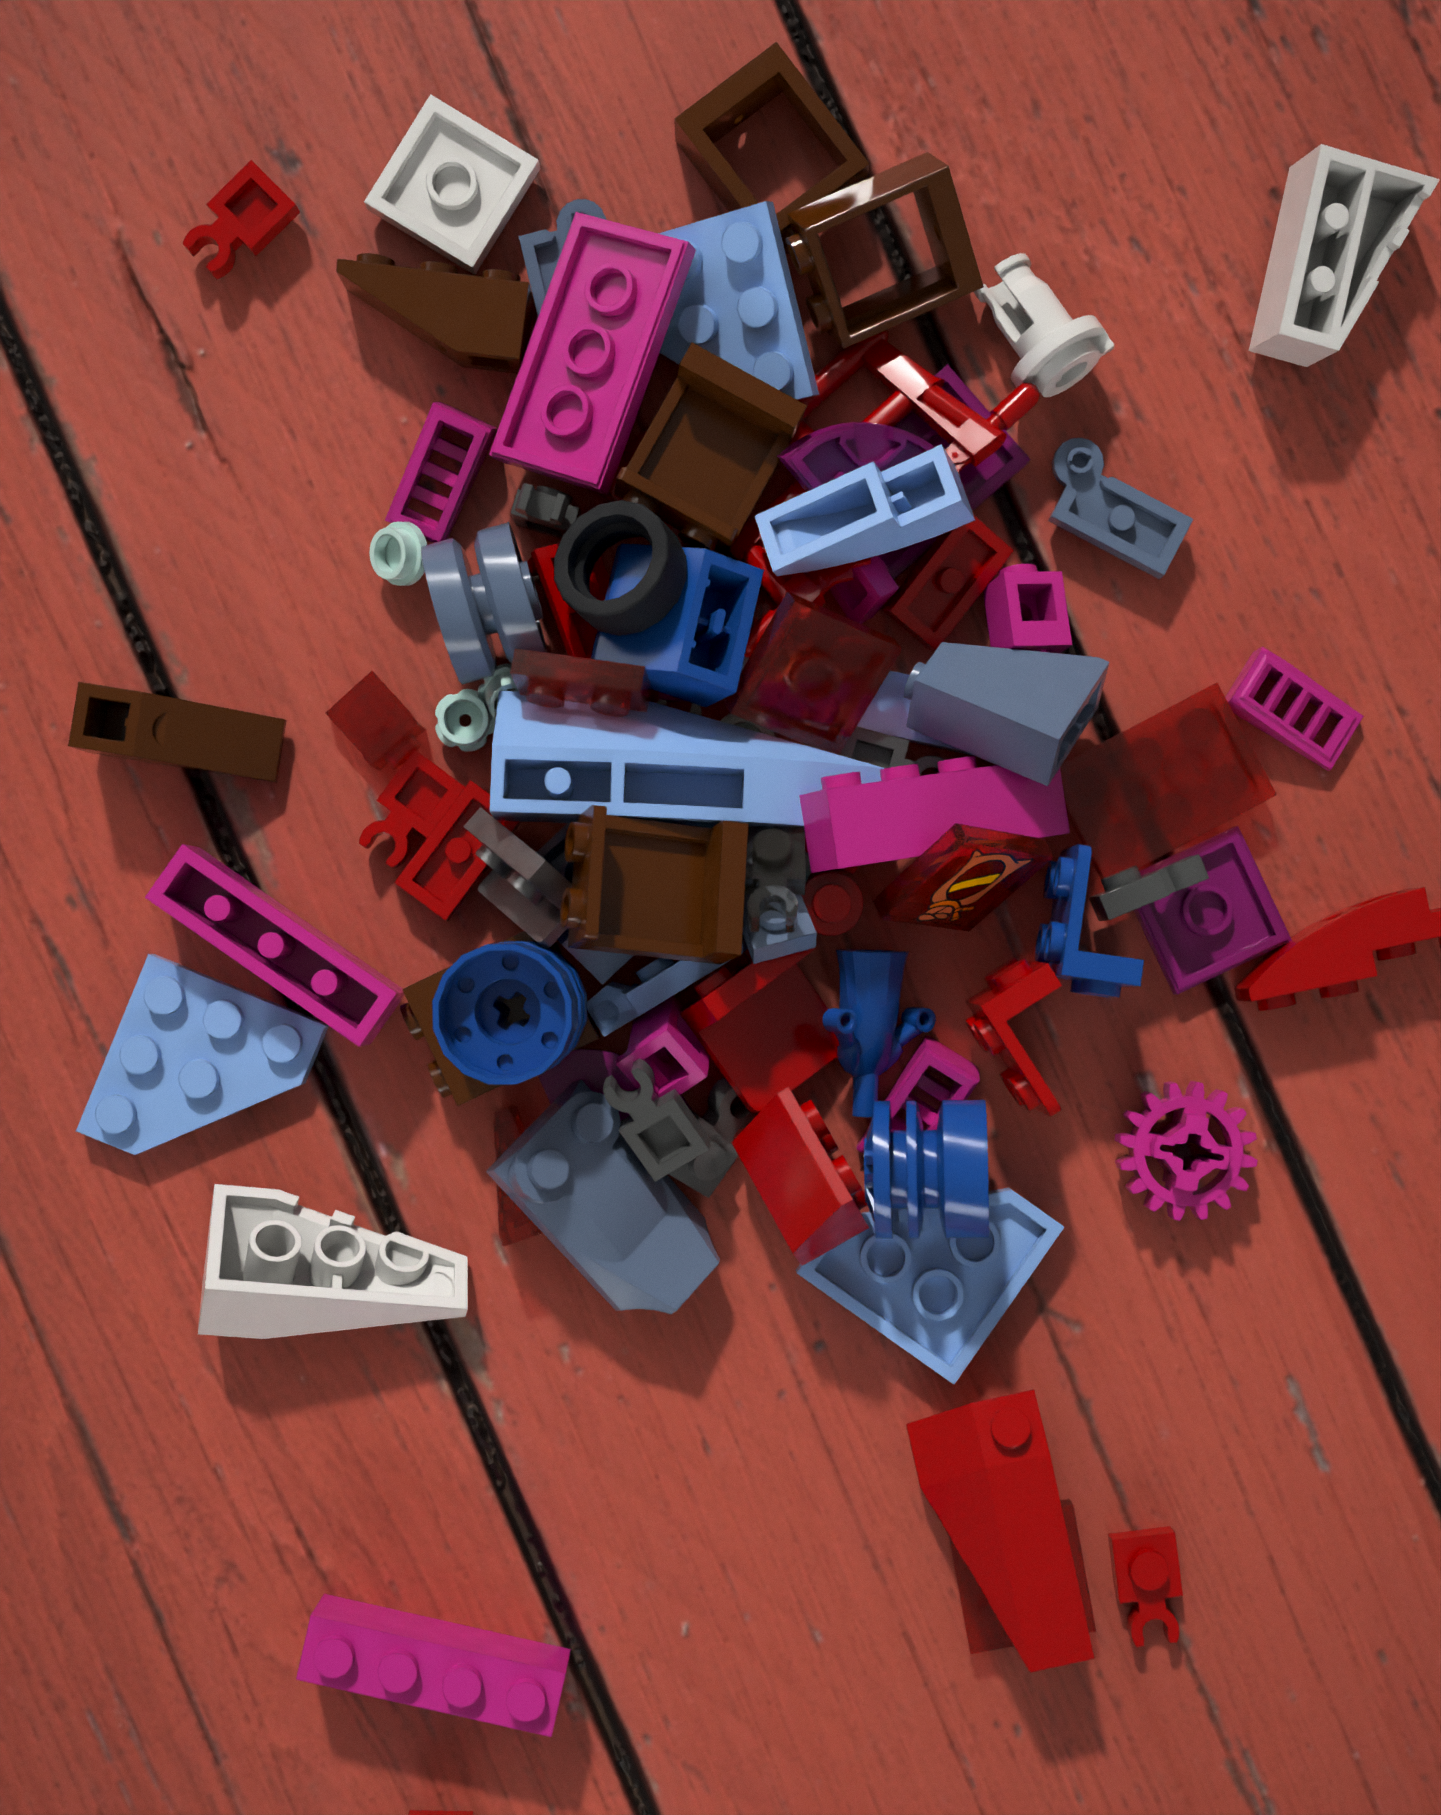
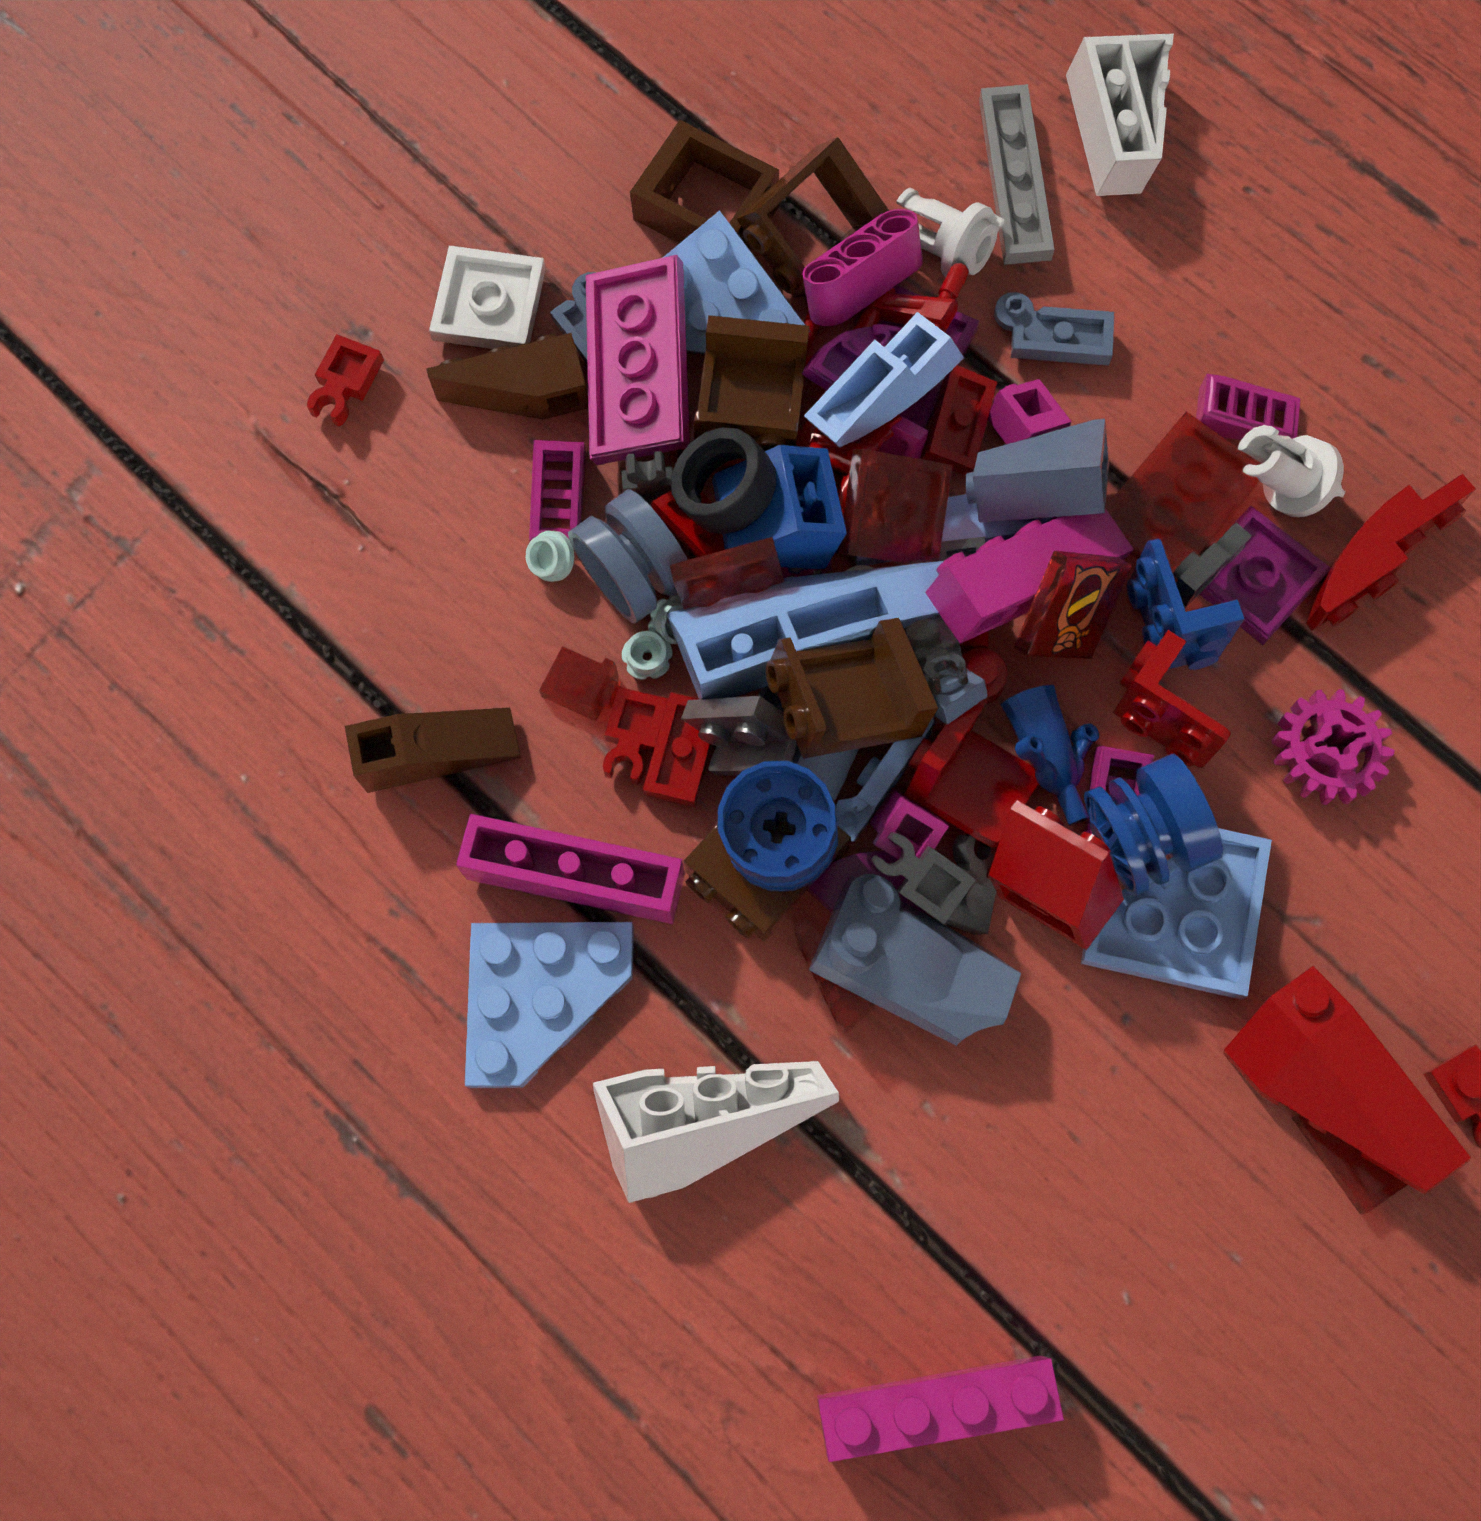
camera: 15 degrees left, 15 degrees down
(913, 341) = (863, 267): none -> dark pink beam
(1164, 279) = (1016, 174): none -> light grey plate
(1298, 797) = (1296, 472): none -> white piece

